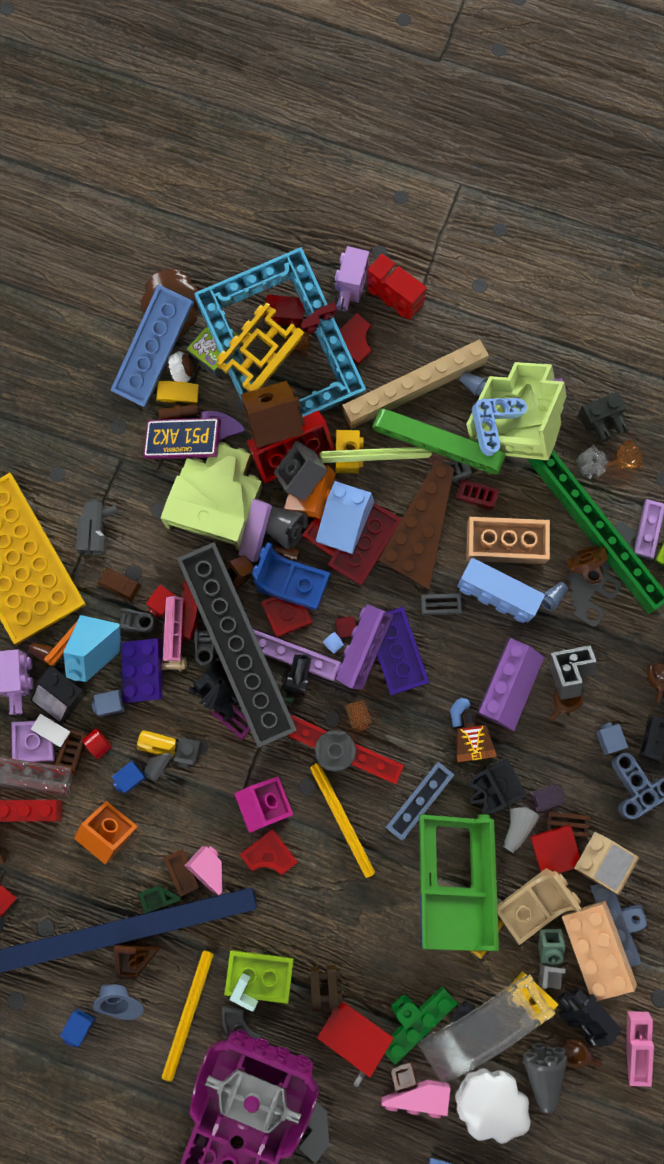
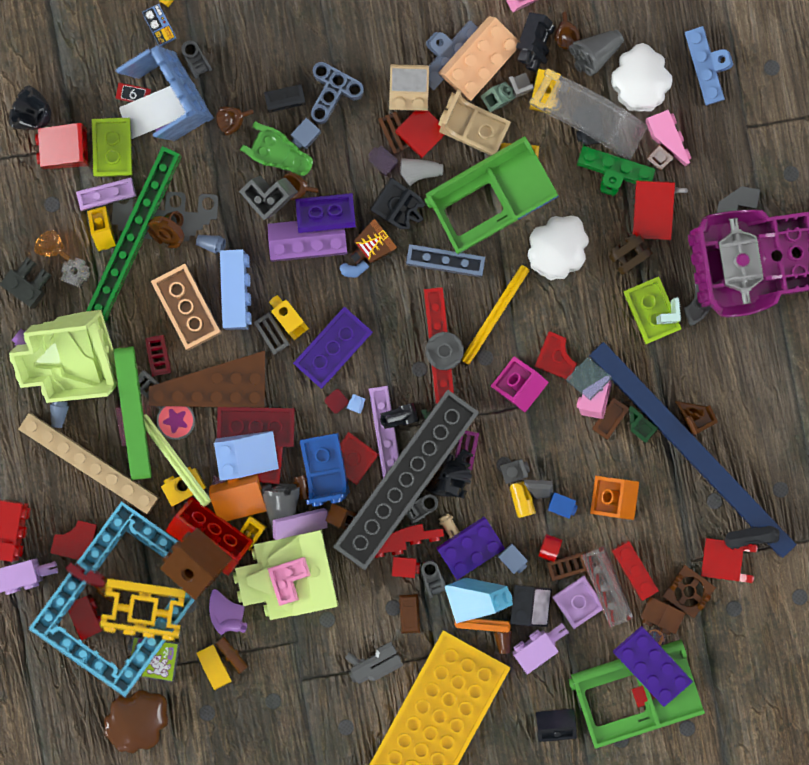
camera: 120 degrees left, 10 degrees up
(50, 730) = (561, 592): white sticker -> none
(77, 1028) = (771, 428): blue brick -> none
(117, 1003) = (735, 408): sand blue piece -> none
(152, 345) = (187, 711): medium blue plate -> none
(173, 629) = (423, 540): bright pink piece -> none
(180, 367) = (190, 676): white hair -> none
(182, 438) = (254, 635): tile -> none
(187, 1016) = (712, 349): yellow axle -> none
(215, 487) = (283, 577): none -> bright pink tile
(229, 873) = (589, 379): none -> clear light blue piece
(274, 491) = (253, 529): none -> yellow slope
(300, 471) = (229, 513): dark grey slope -> none
(358, 715) = (404, 348): clear orange brick -> none
(364, 647) = (347, 375): medium lavender slope -> none
(371, 919) = (558, 247): none -> white piece
(408, 477) = (175, 421): none -> tile
(447, 625) = (291, 321): none -> yellow torso
(489, 417) = (84, 380): light blue beam -> none
(526, 714) = (325, 213): none -> dark purple plate
(608, 703) = (275, 150): none -> bright green animal
(620, 506) = (101, 228): none -> yellow slope

